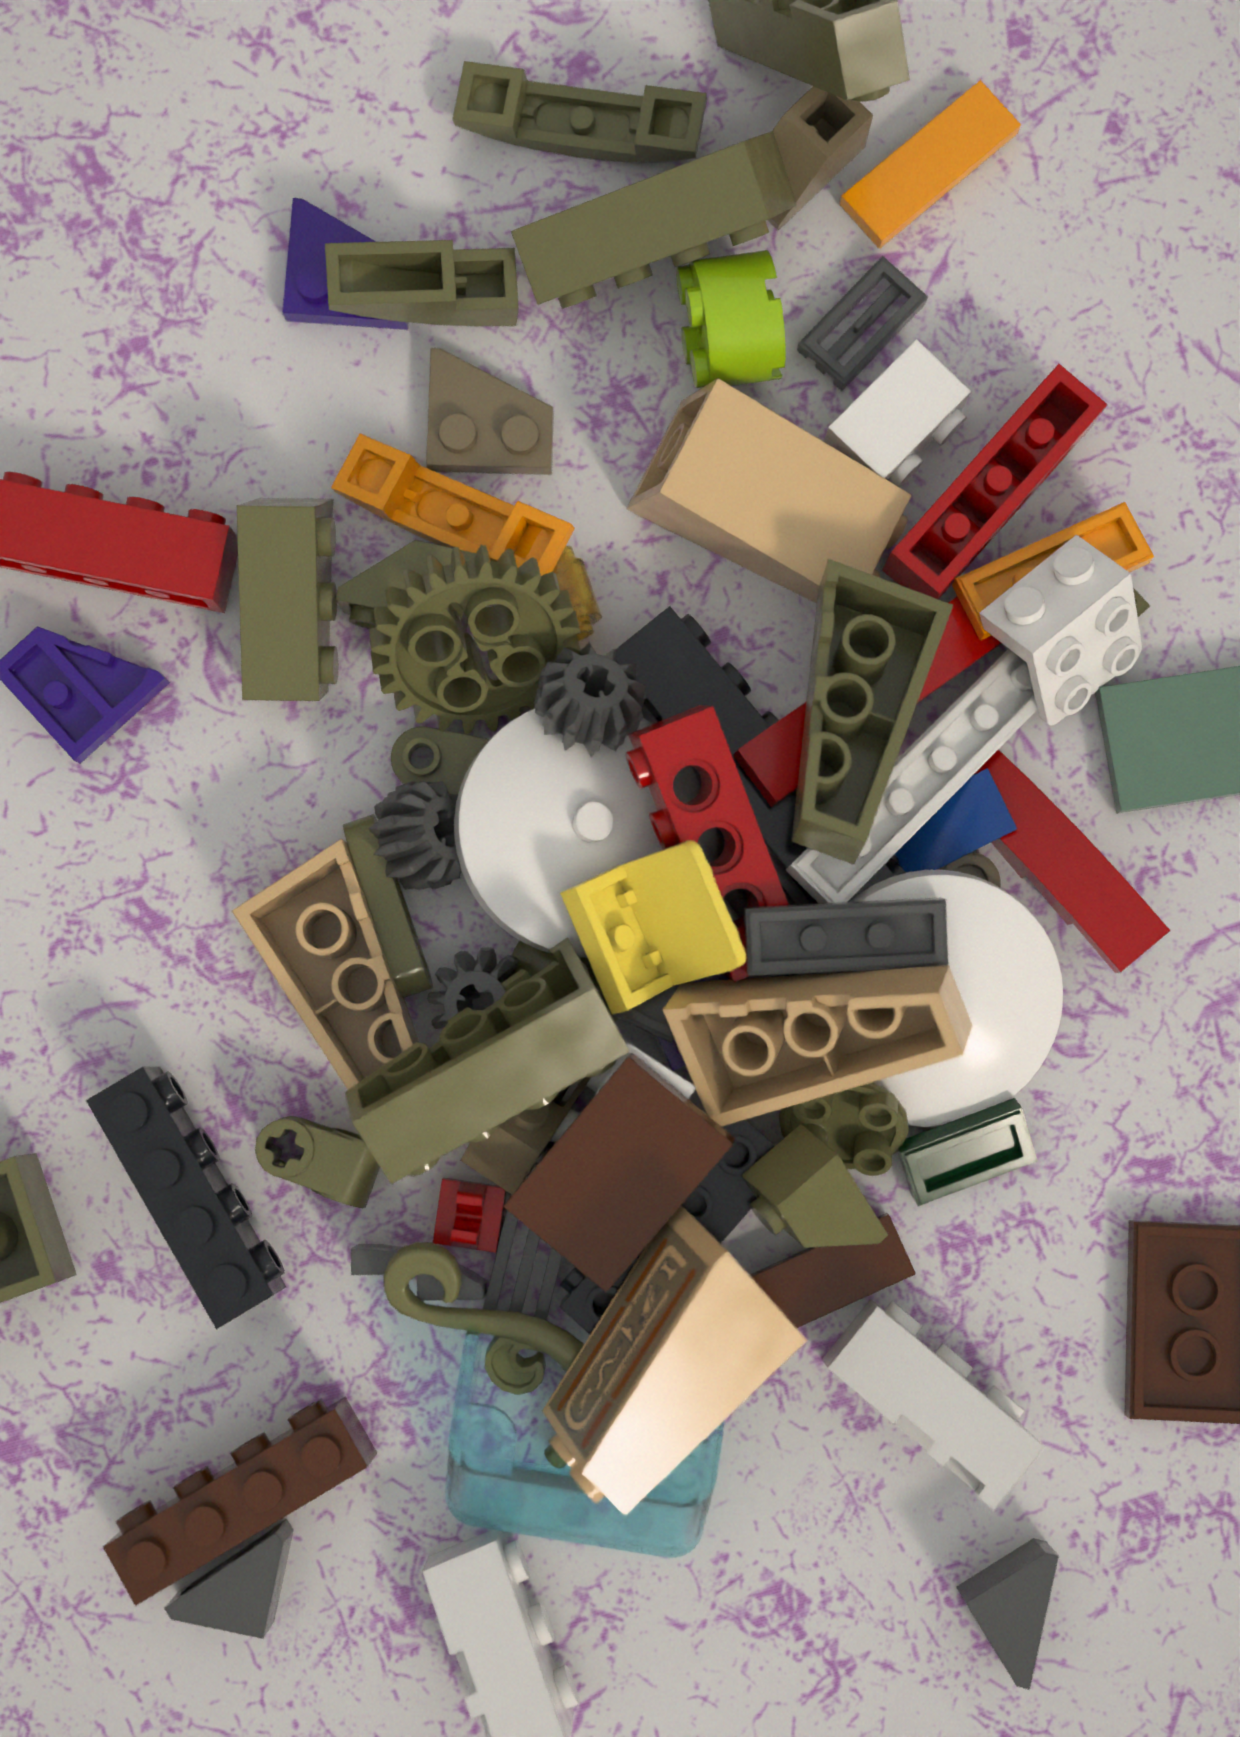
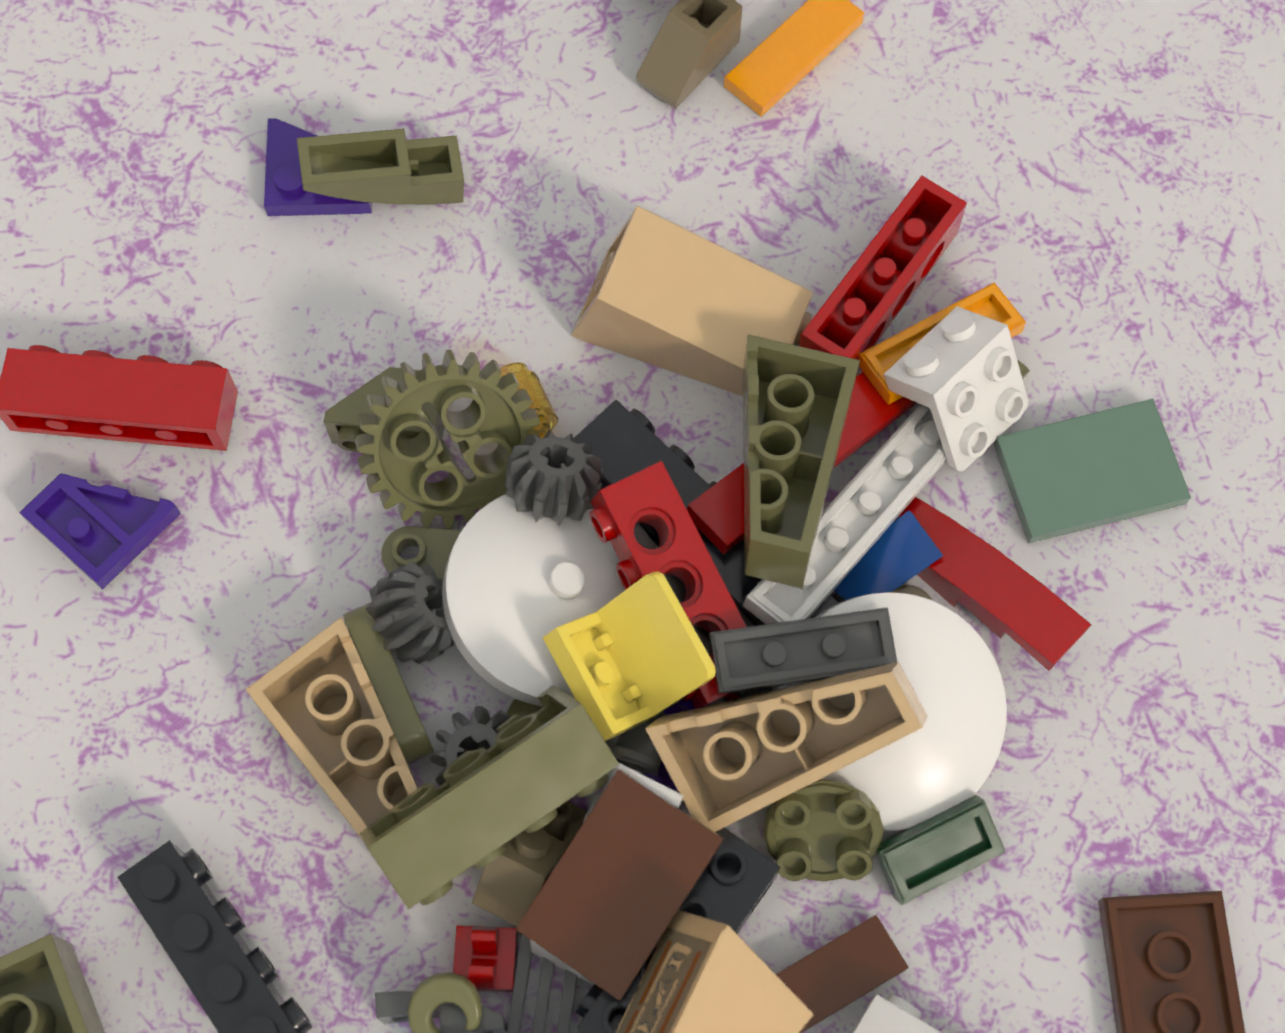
camera: 10 degrees left, 15 degrees down
(286, 598) = (280, 426): olive wedge -> none
(332, 1162) = (352, 917): olive piece -> none
(445, 509) = (376, 339): light orange slope -> none
(484, 422) = (442, 277): dark tan wing -> none
(577, 120) = (501, 43): olive slope -> none
(654, 220) = (570, 98): olive wedge -> none
(732, 319) = (644, 168): lime brick -> none
(811, 1195) = (802, 892): olive slope -> none
(828, 360) = (731, 203): dark grey tile -> none
(901, 415) = (798, 232): white brick -> none

